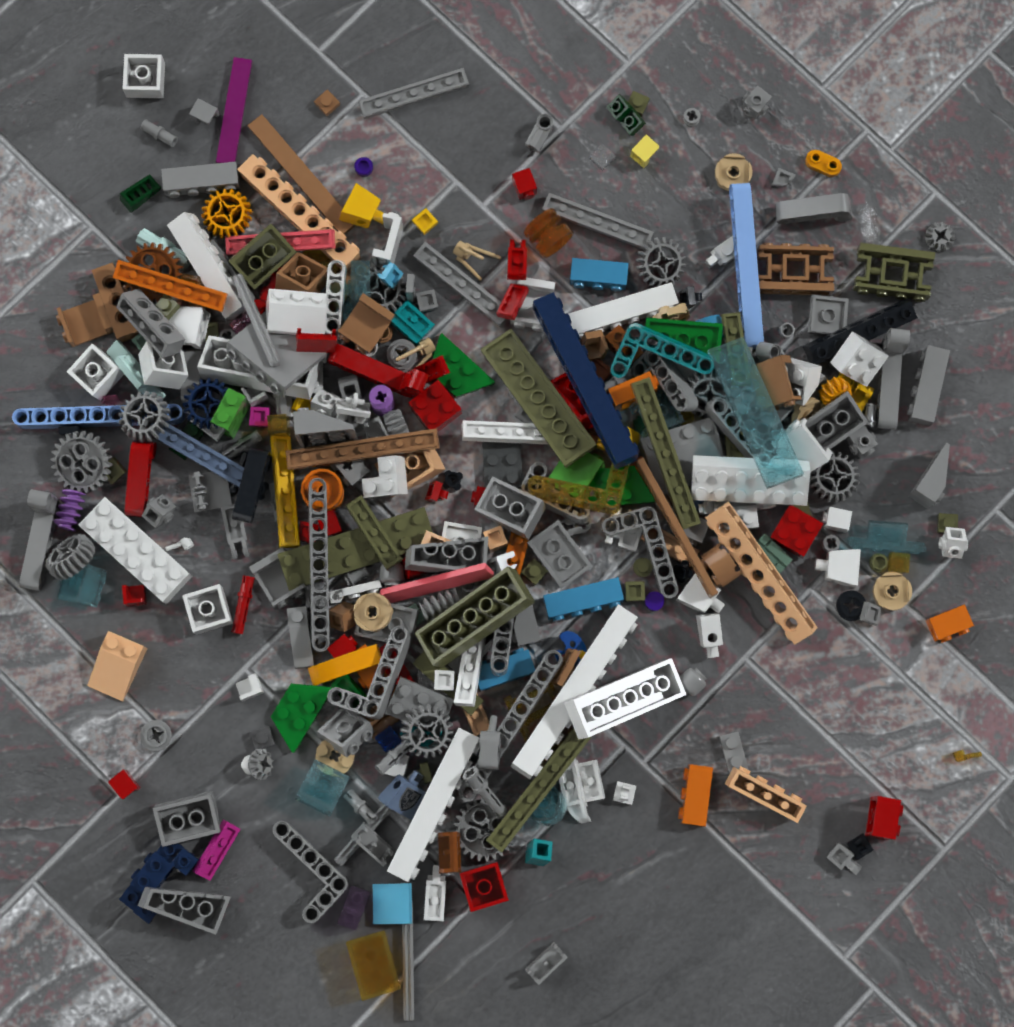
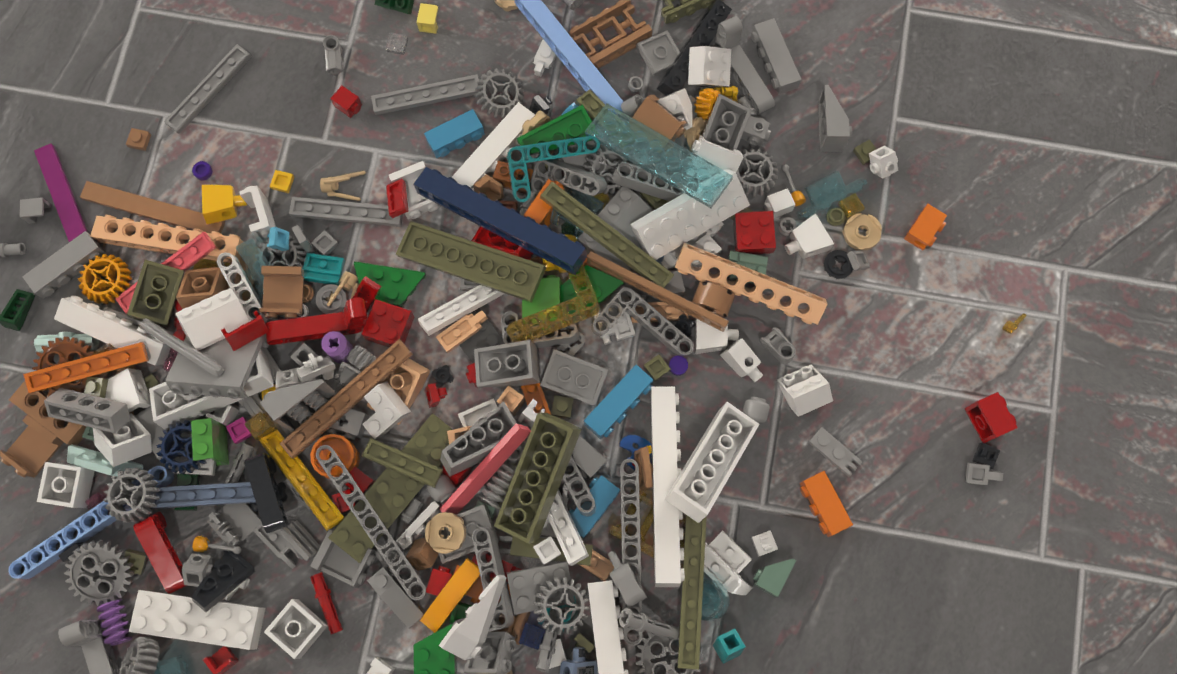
camera: 30 degrees left, 5 degrees down
(174, 492) = (202, 544): none -> hinge
(177, 531) = (224, 578): none -> black wing
(255, 541) = (303, 537): none -> light grey tile
(342, 704) = (470, 634): none -> white wedge
(492, 453) = (461, 330): none -> light nougat hinge
(517, 261) = (380, 164): red hinge -> none
(548, 233) = (391, 125): clear orange wheel -> none
(612, 823) = (773, 577): none -> sand green slope
(642, 567) = (649, 344): olive plate -> none
(745, 692) = (805, 390): none -> white slope
(749, 636) = (775, 343): none -> light grey piece
(766, 795) = (882, 463): light nougat brick -> none
(857, 523) = (797, 196): none -> hinge

